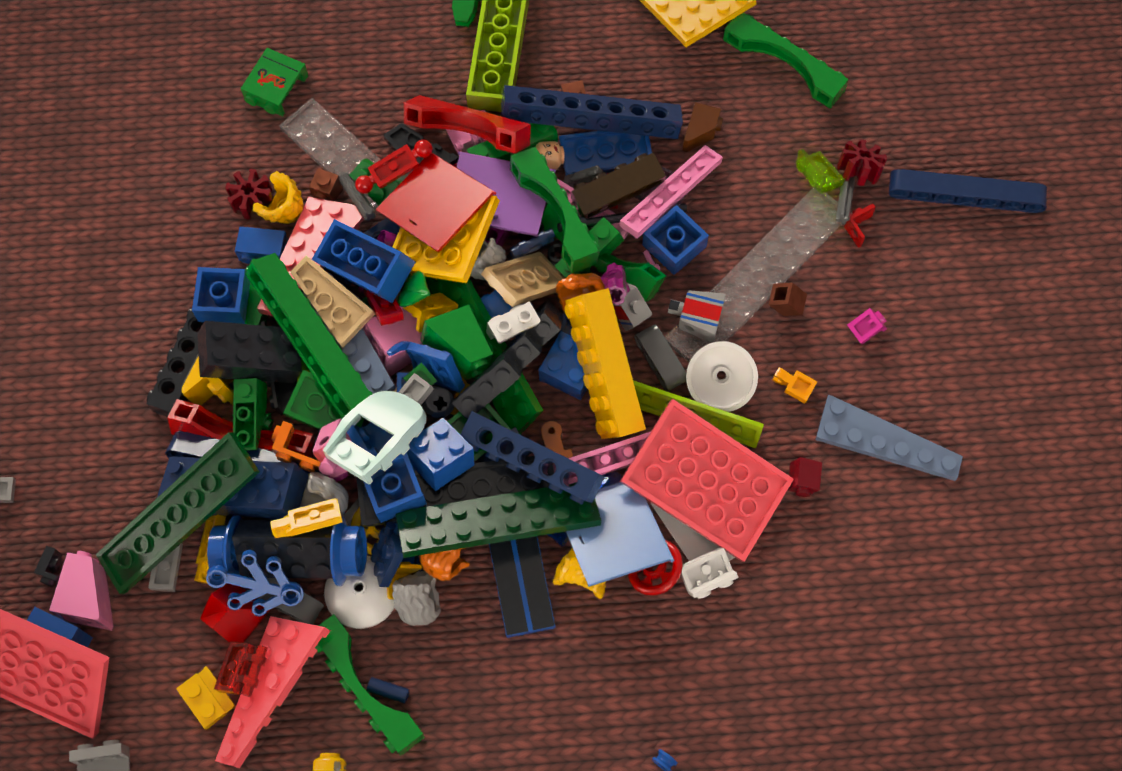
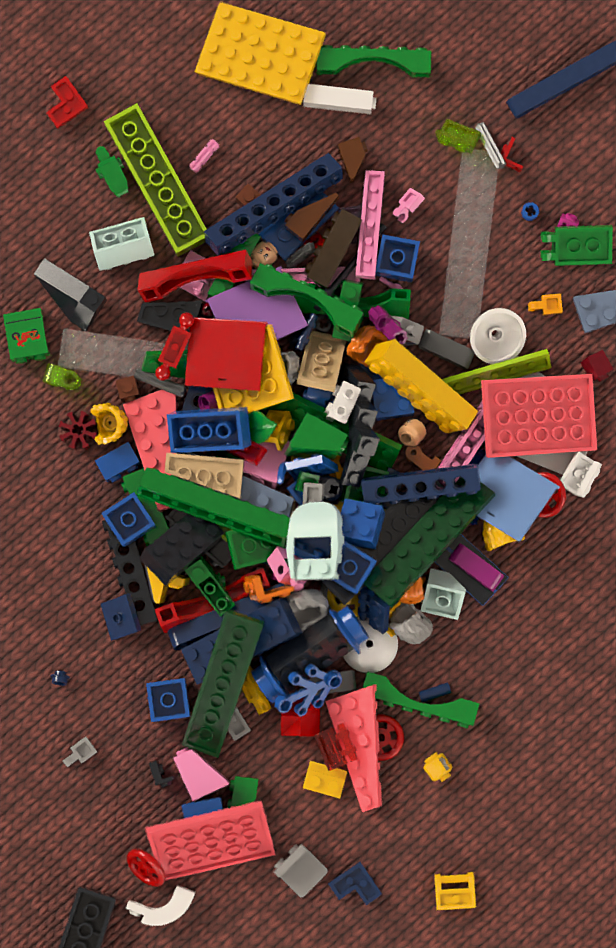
camera: 35 degrees left, 15 degrees up
(39, 405) = (59, 678): none -> dark blue plate
(117, 497) = (168, 700): none -> blue brick
(118, 645) = (243, 790): none -> green slope
(142, 386) = (120, 617): none -> dark blue plate
(275, 139) = (58, 377): none -> clear neon green piece
(306, 715) = (396, 745): none -> red plate
(307, 519) = (315, 627): yellow hinge -> none
(344, 78) = (74, 297): none -> wedge
(424, 63) = (121, 244): none -> light aqua slope
(472, 593) = (443, 595): none -> light aqua slope
(528, 589) = (476, 567): none -> magenta beam
(562, 39) = (204, 155): none -> bright pink axle
(565, 411) = (412, 432): none -> light nougat head
(617, 148) = (308, 217): none -> reddish brown slope
(699, 313) = (452, 302): torso -> none
(726, 200) = (408, 202): none -> bright pink plate
(727, 69) = (339, 99): none -> white brick
(787, 299) = (502, 248): copper brick -> none
(842, 280) = (535, 209): none -> blue bush
(861, 162) = (482, 109): dark red gear -> none
(870, 348) = (579, 245): none -> green tile

